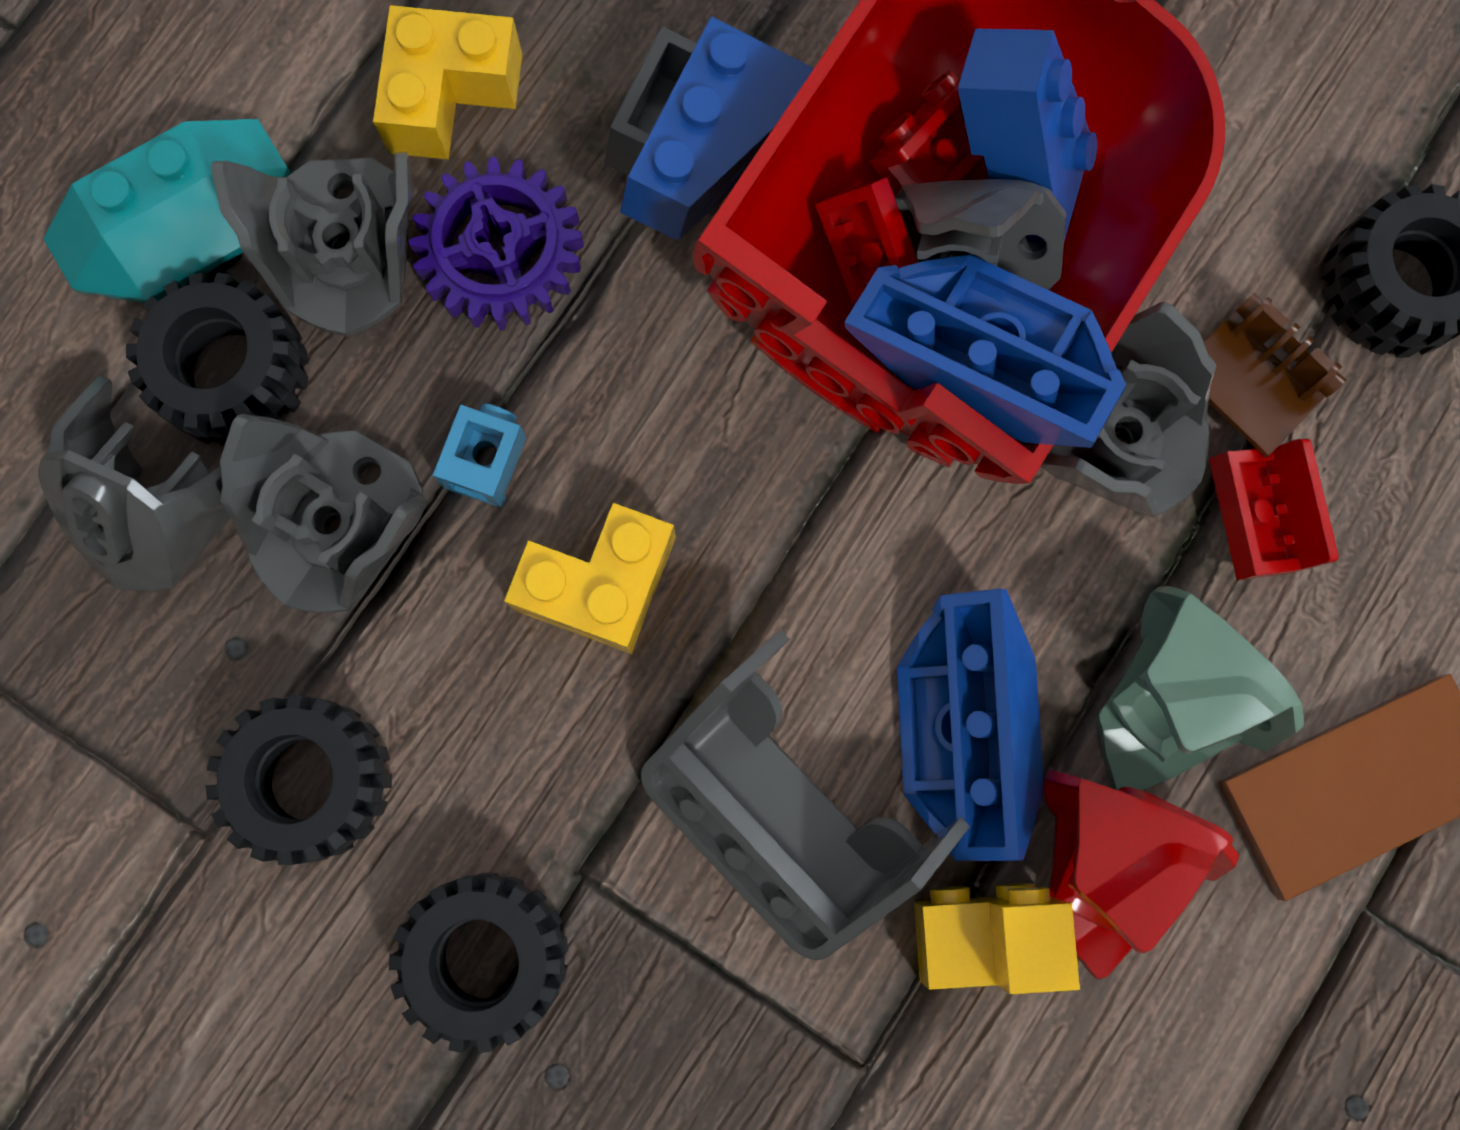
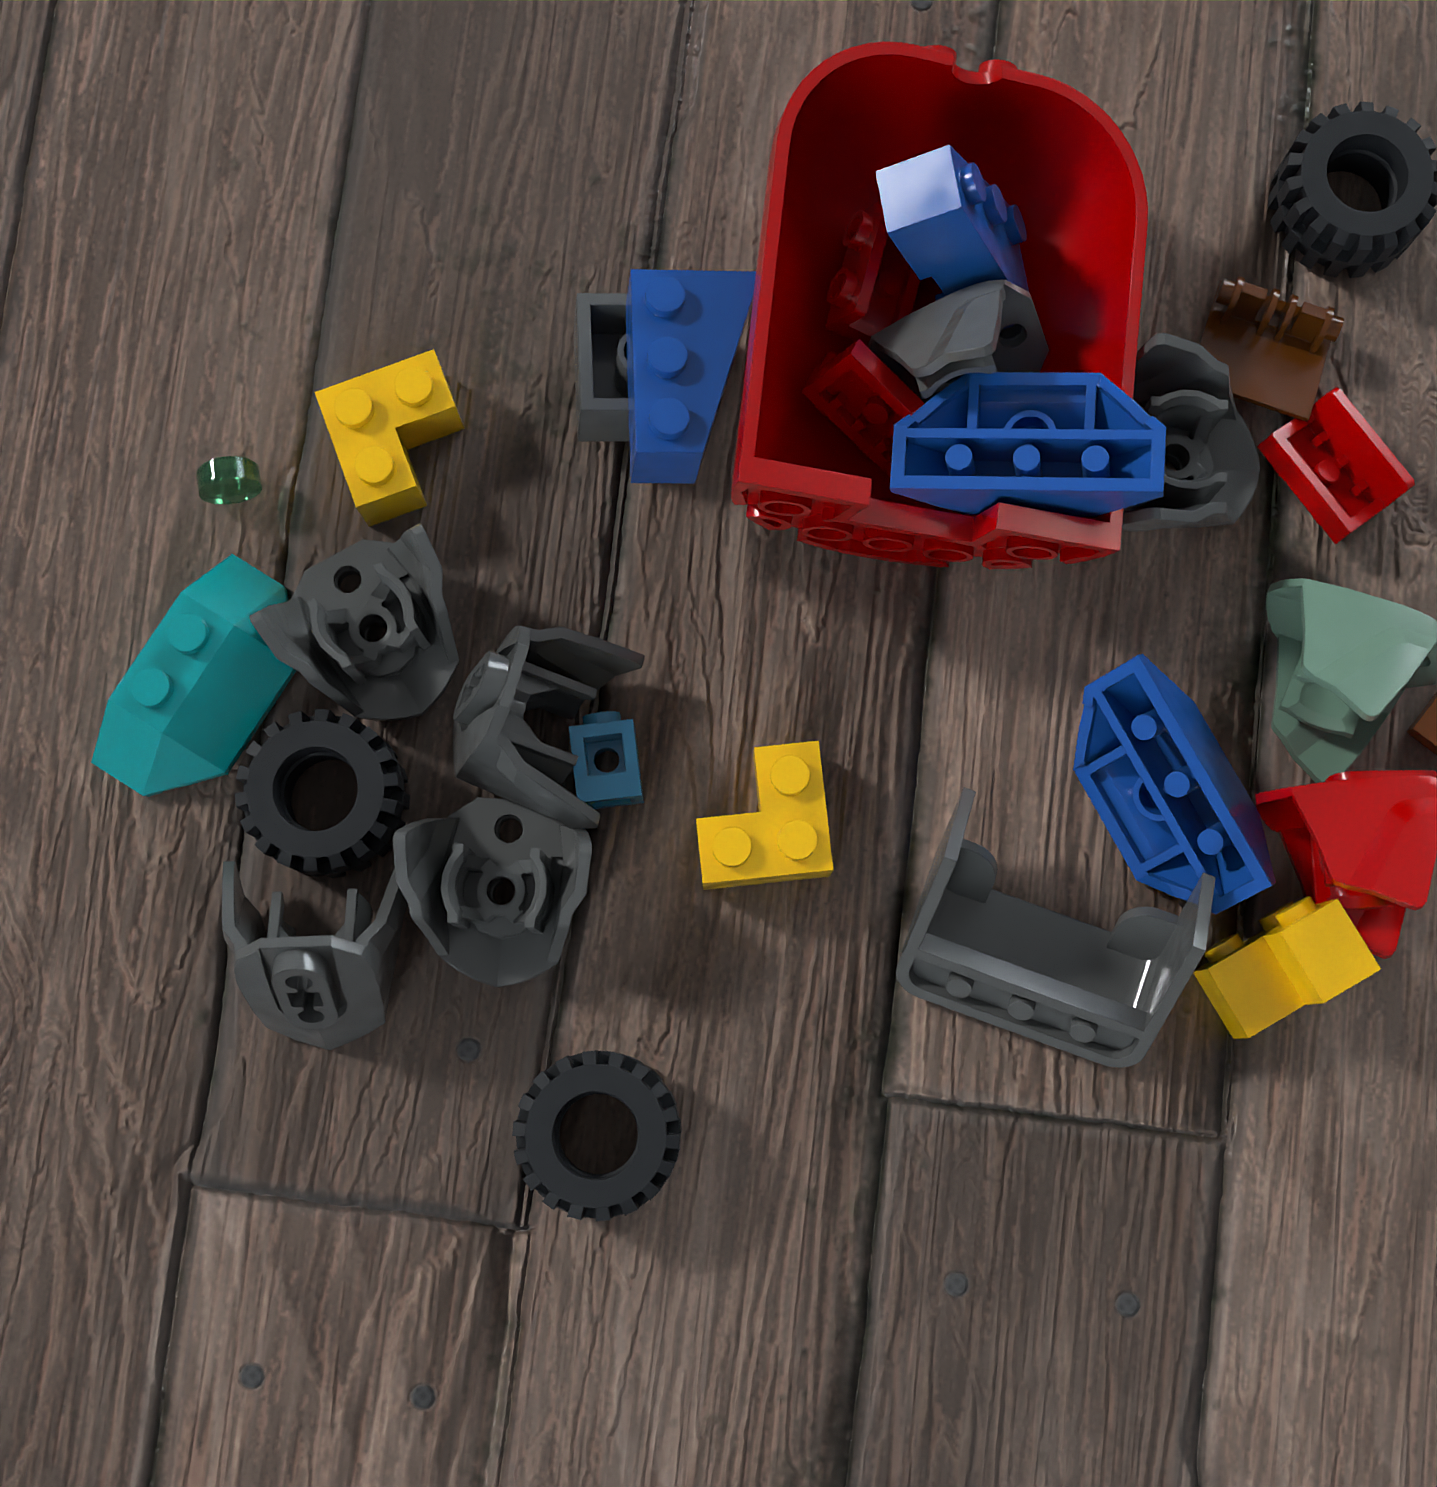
camera: 20 degrees left, 0 degrees up
(284, 52) = (228, 480): none -> clear green tile
(434, 995) = (879, 1259): black tyre -> none
(442, 339) = (531, 671): none -> dark grey piece
(480, 197) = (501, 582): dark purple gear -> none

